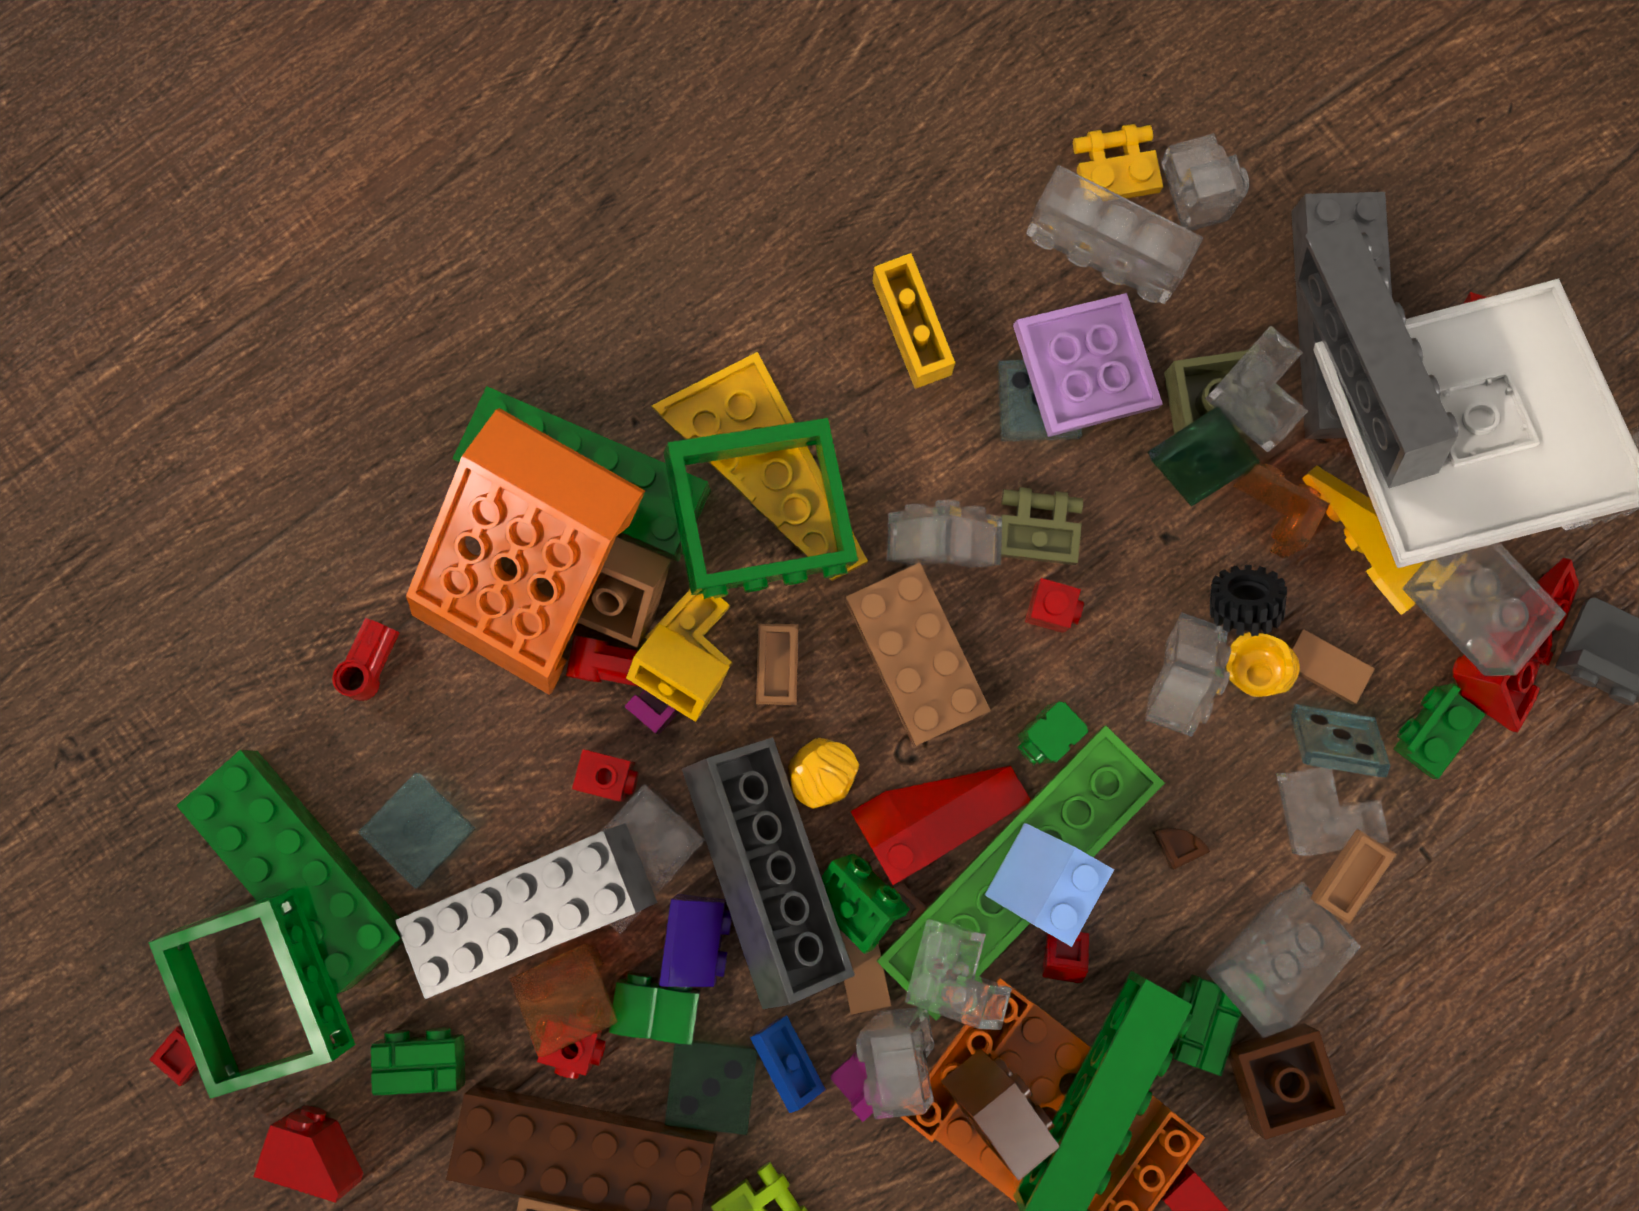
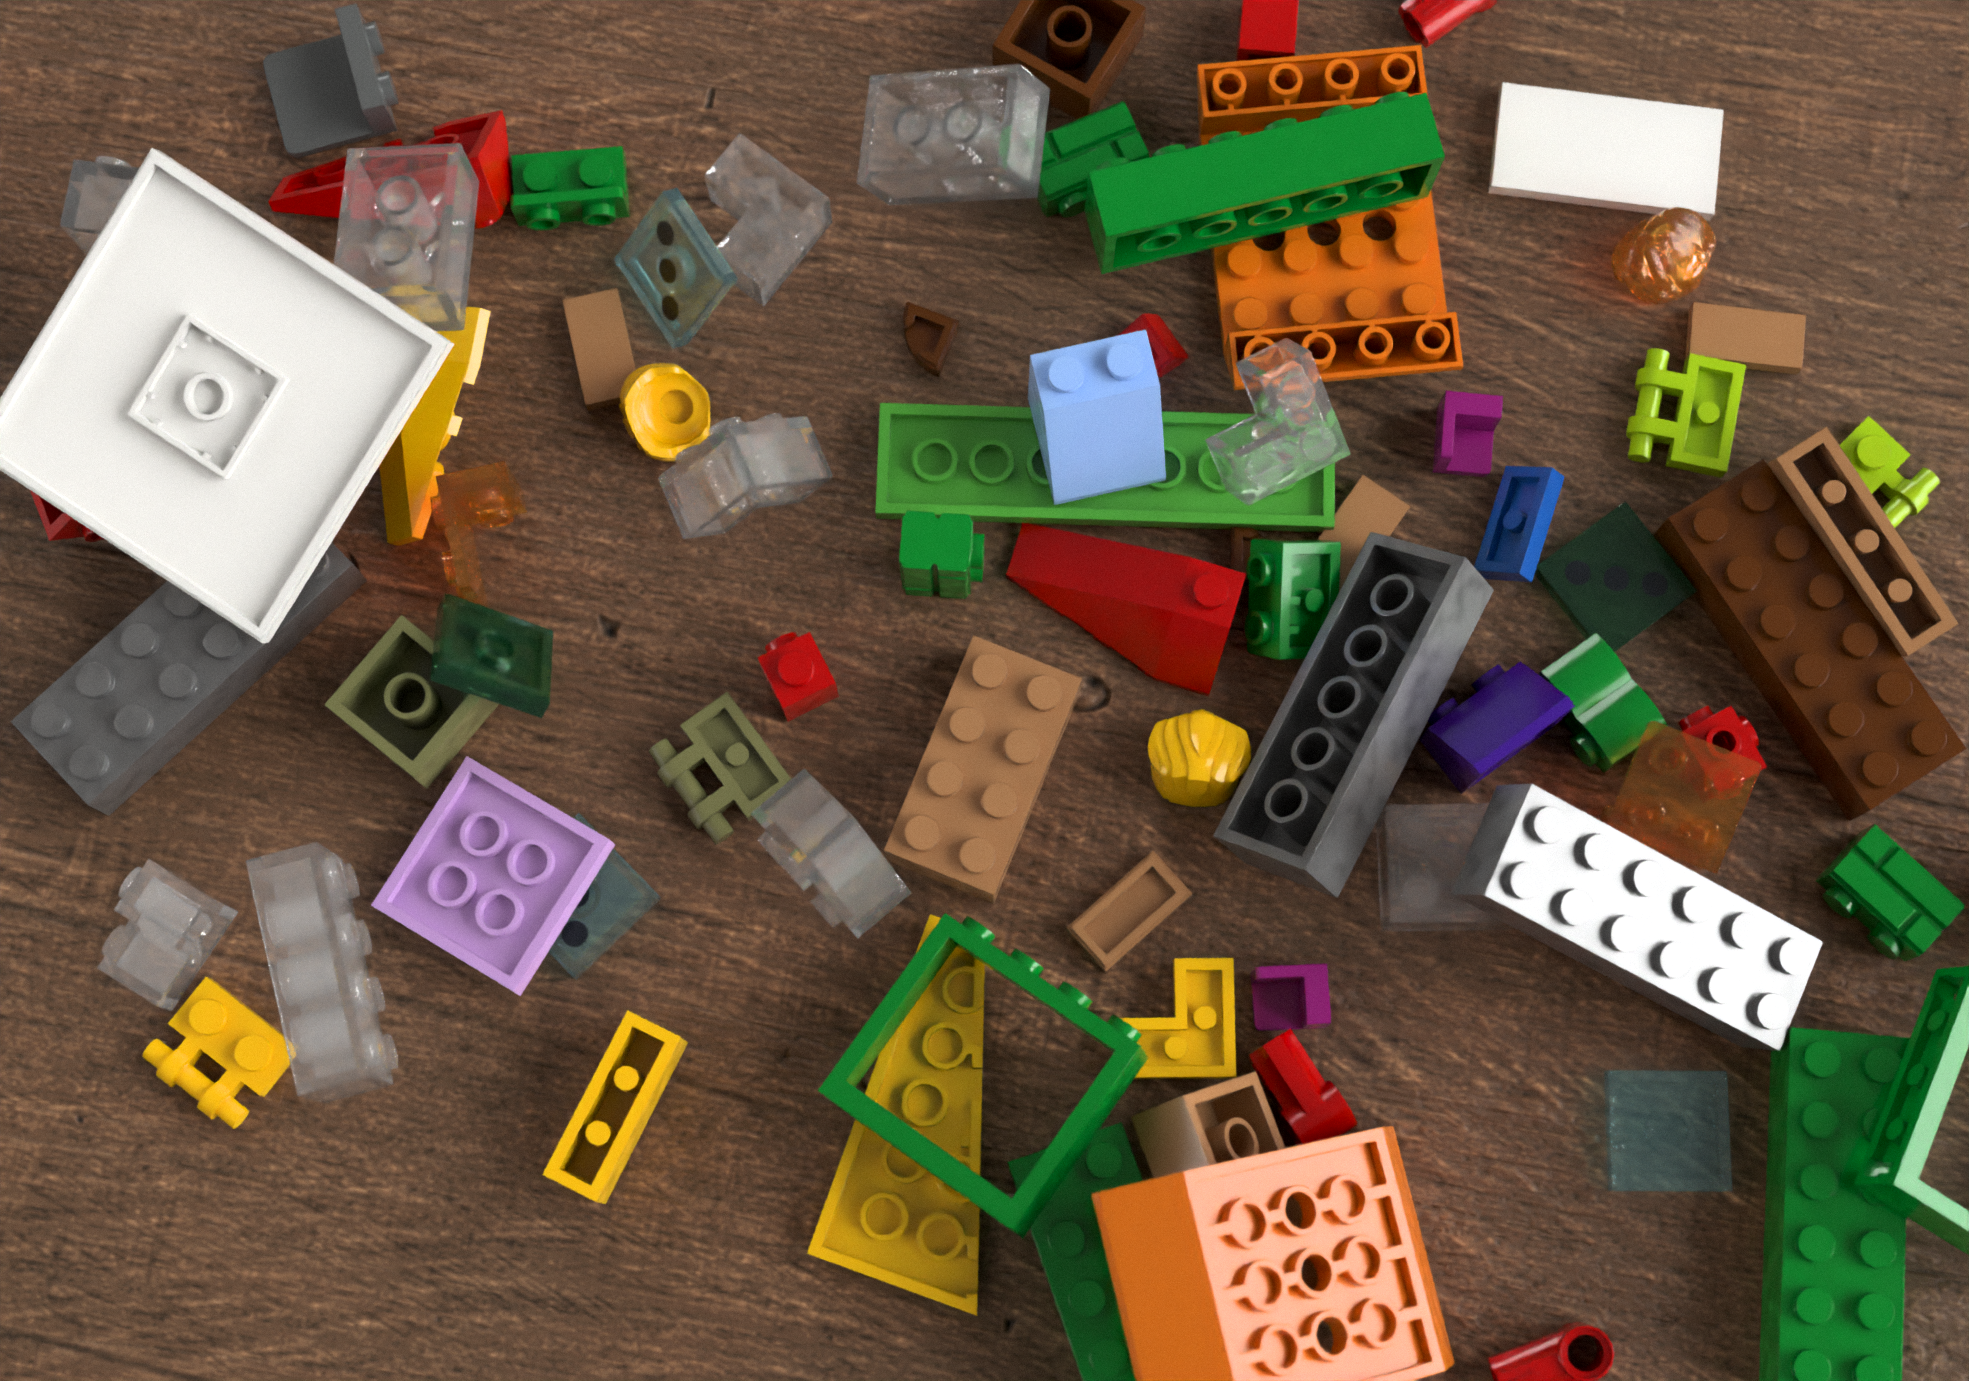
camera: 135 degrees left, 5 degrees down
(605, 776) = (1419, 979): red brick -> none
(677, 672) = (1242, 995): yellow brick -> none
(895, 1062) = (1415, 411): clear brick -> none
(1002, 1112) = (1364, 264): reddish brown brick -> none
(1248, 600) = (589, 496): black tyre -> none
(1253, 398) = (382, 662): clear brick -> none
(1353, 876) = (808, 138): medium nougat tile -> none
(1374, 354) = (233, 560): flat silver brick -> none

